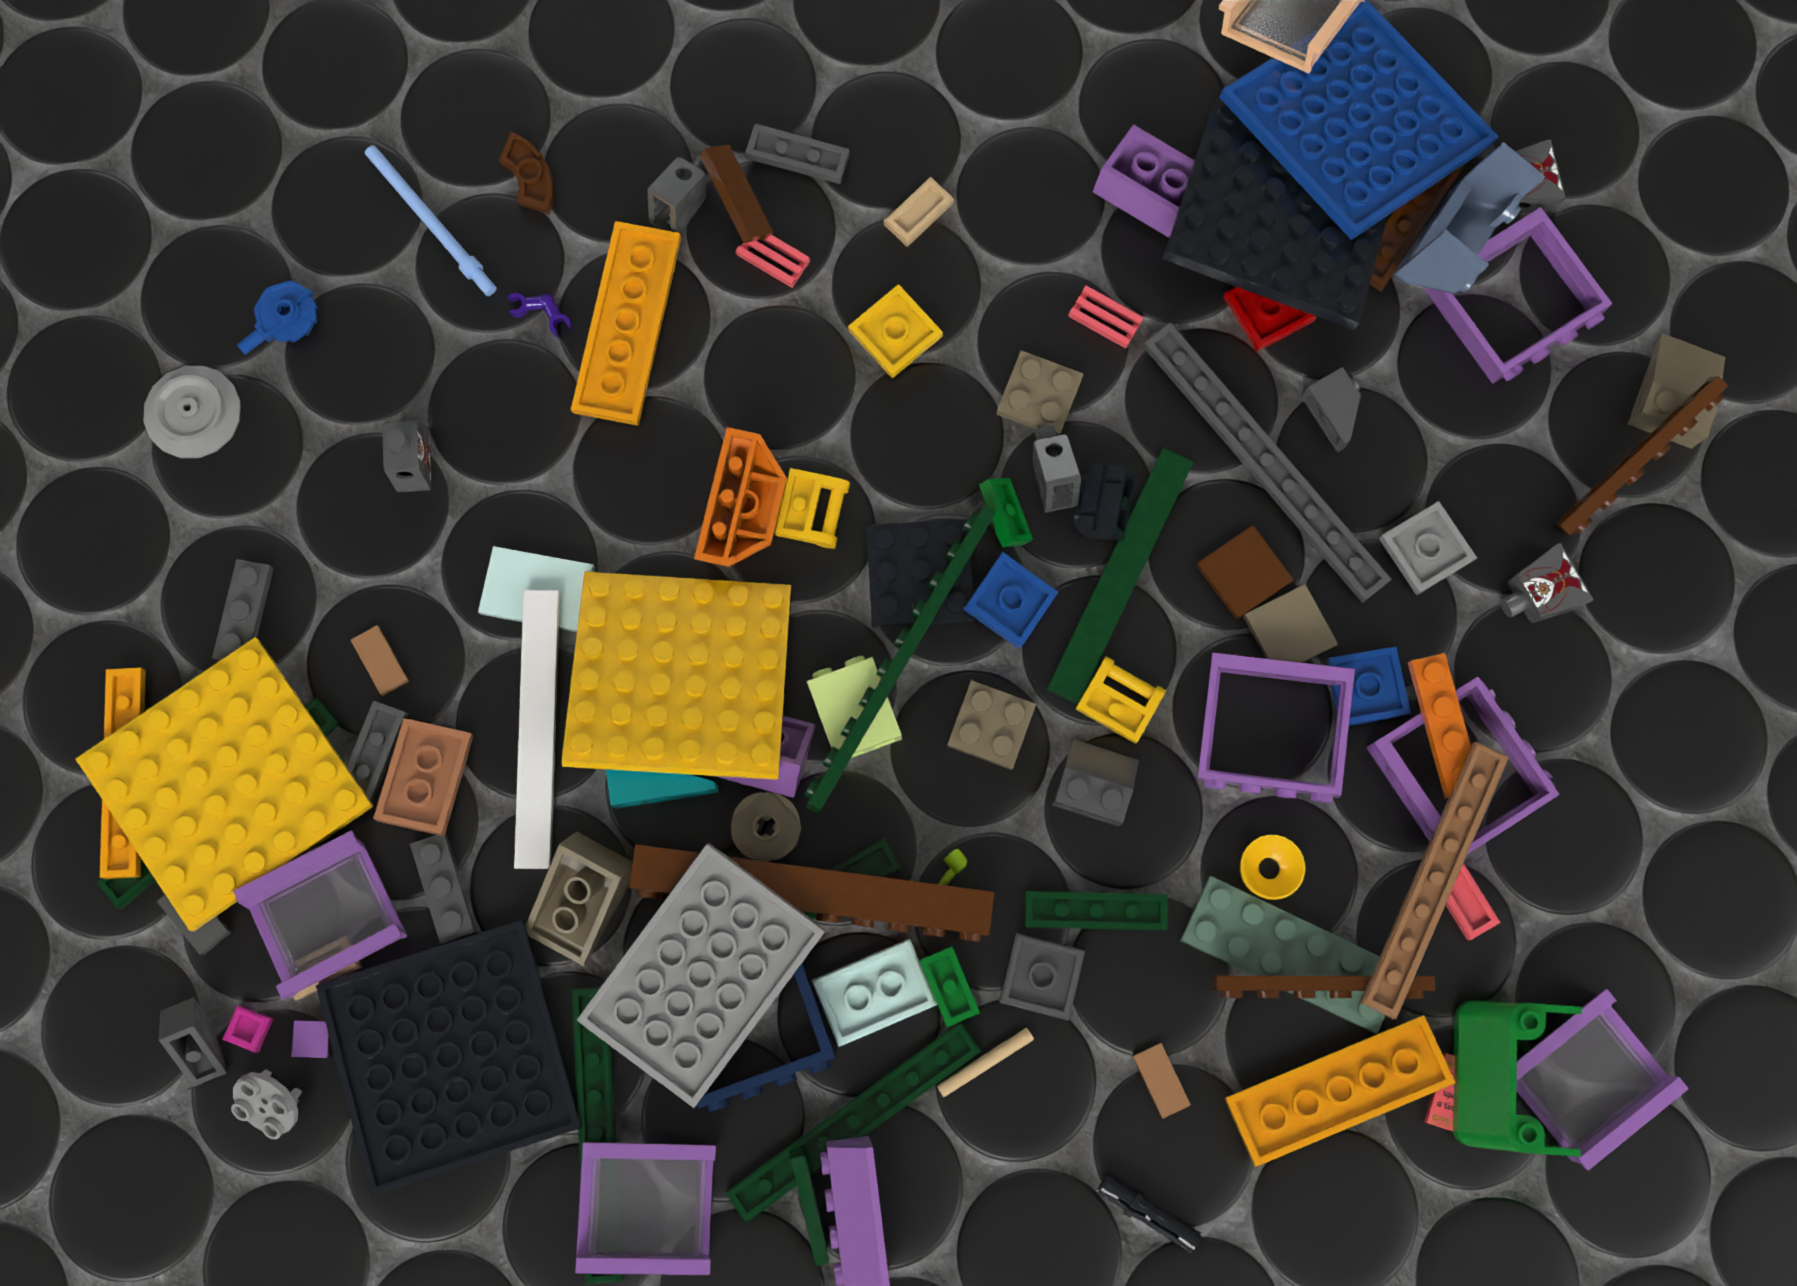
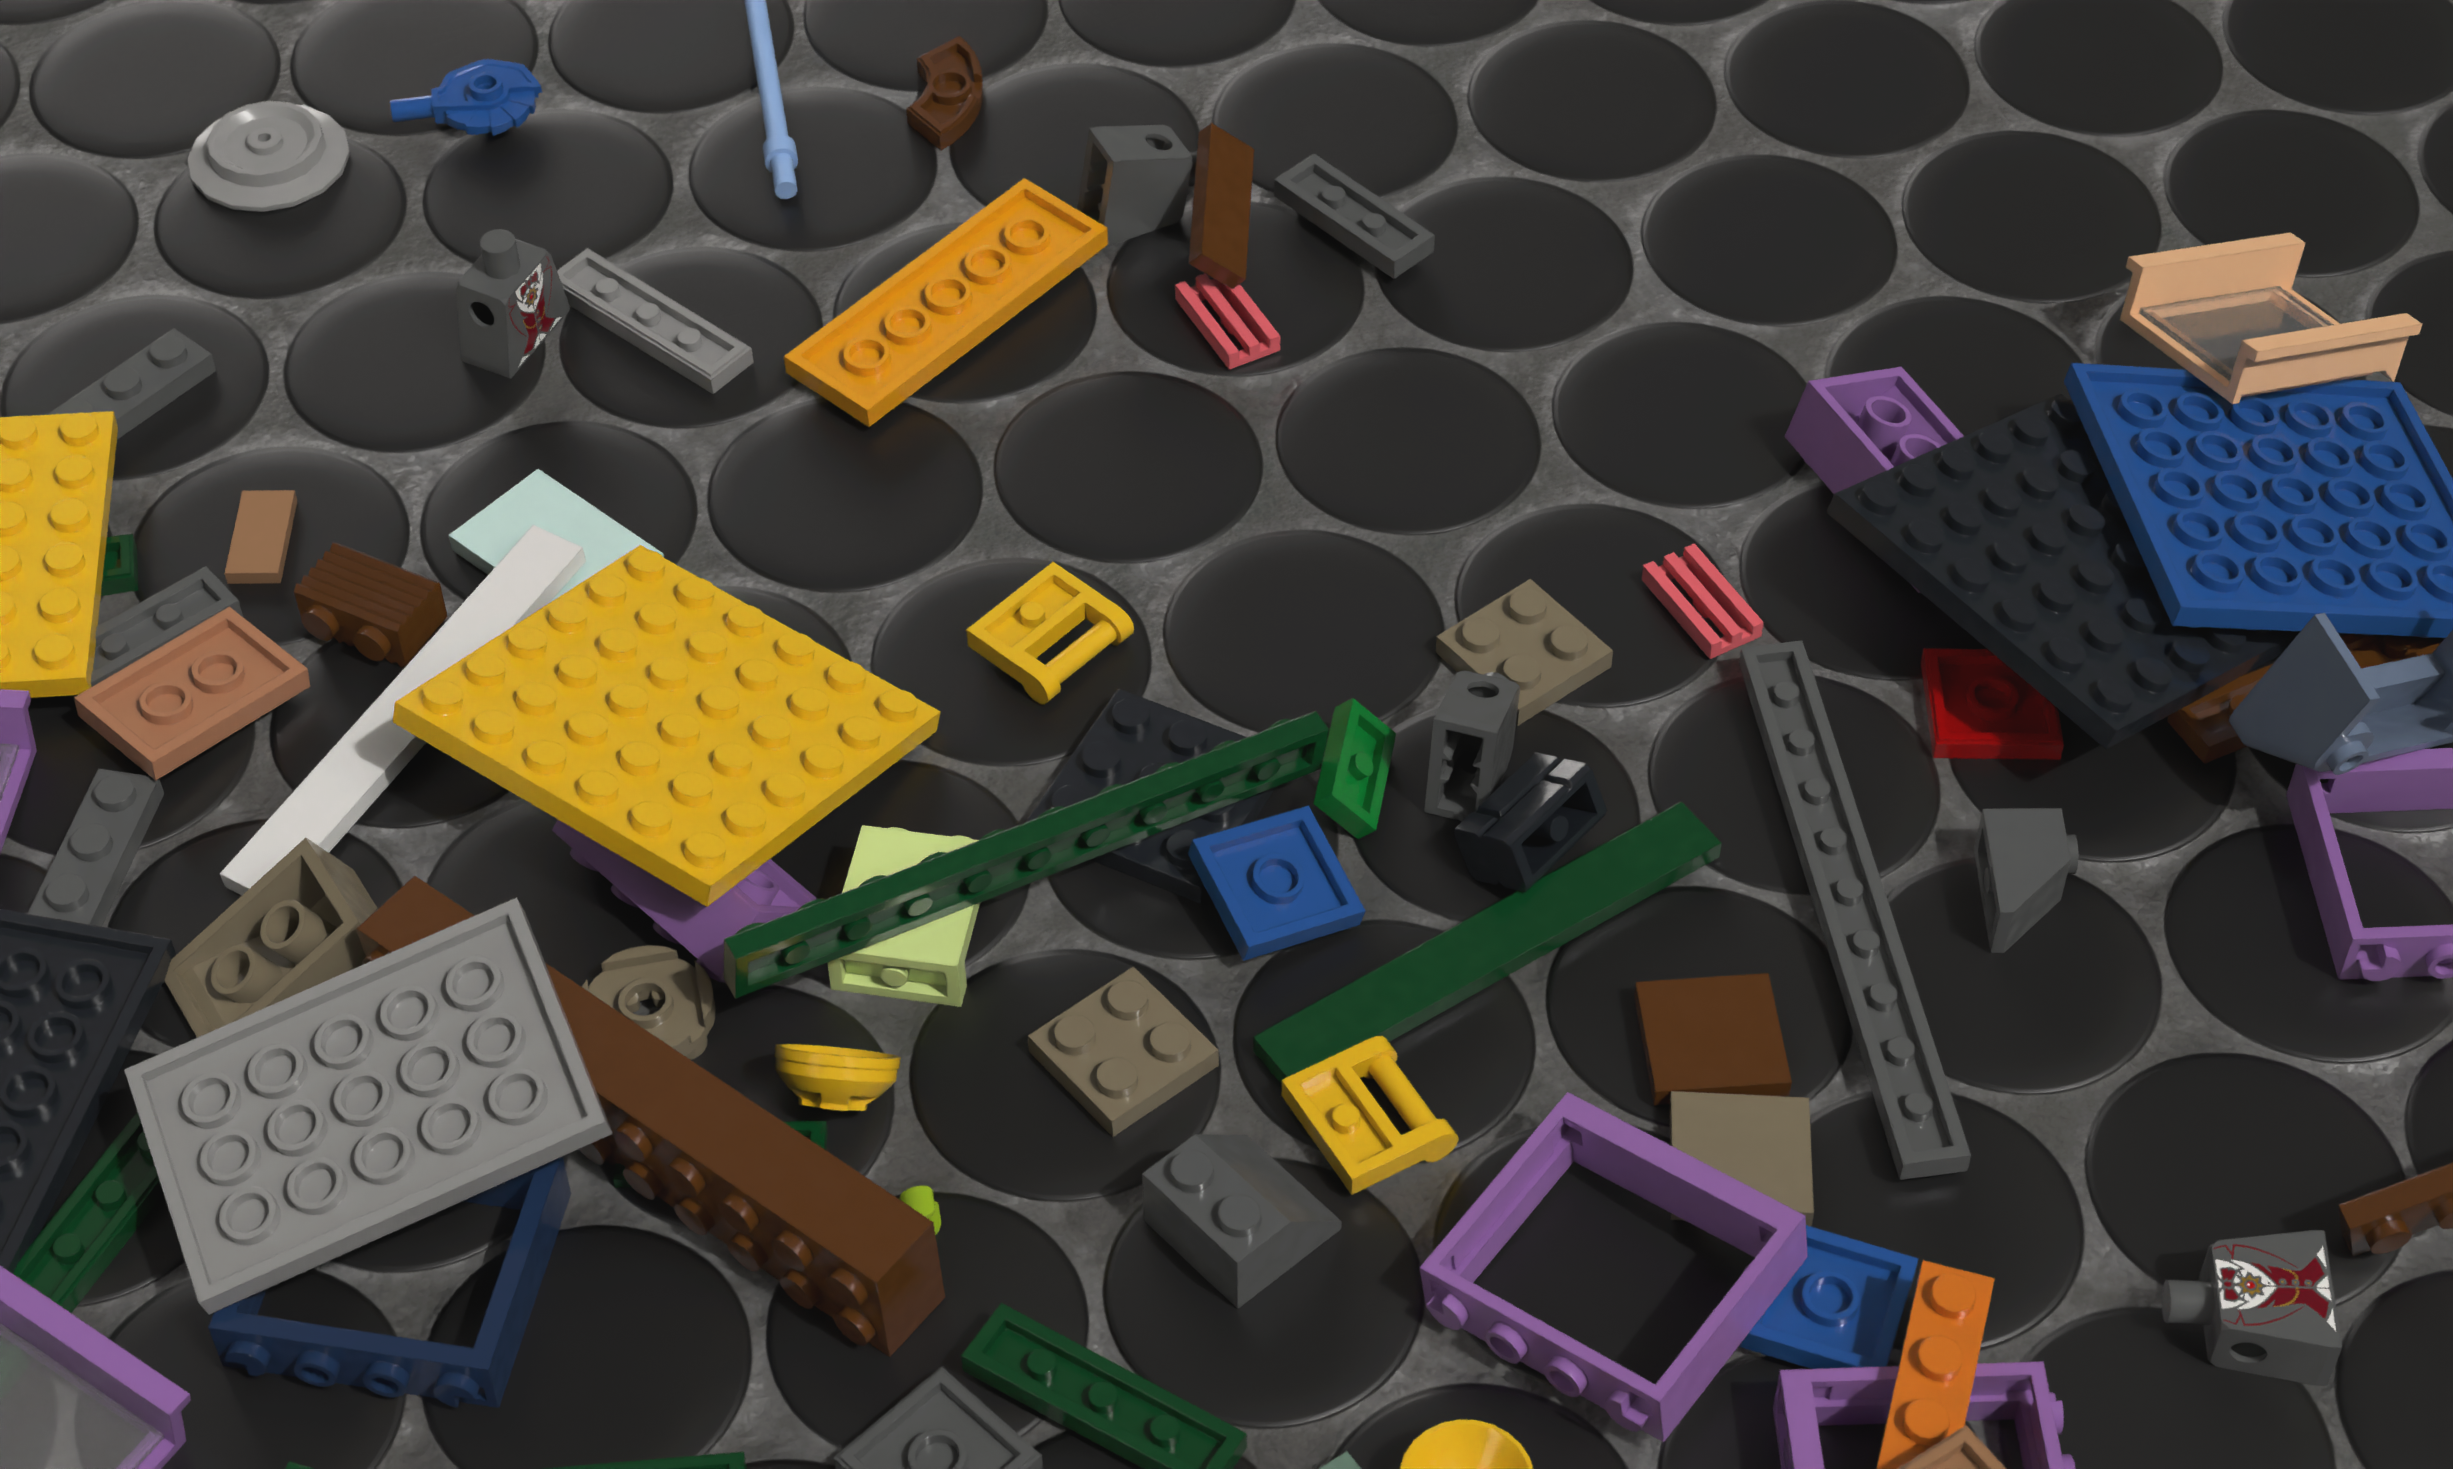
camera: 30 degrees right, 30 degrees down
(471, 677) = (369, 605): none -> reddish brown brick
(478, 415) = (653, 322): none -> light grey tile
(544, 302) = (851, 233): dark purple arm -> none
(642, 788) = (507, 852): teal slope -> none
(741, 500) = (941, 554): orange wedge -> none
(874, 992) = (635, 1339): light aqua tile -> none
(878, 814) = (835, 1075): none -> yellow piece
(895, 331) = (1346, 474): yellow plate -> none
(918, 211) = (1491, 357): tan tile -> none
(949, 986) = (765, 1387): green plate -> none
(1427, 548) = (2070, 1148): light grey plate -> none

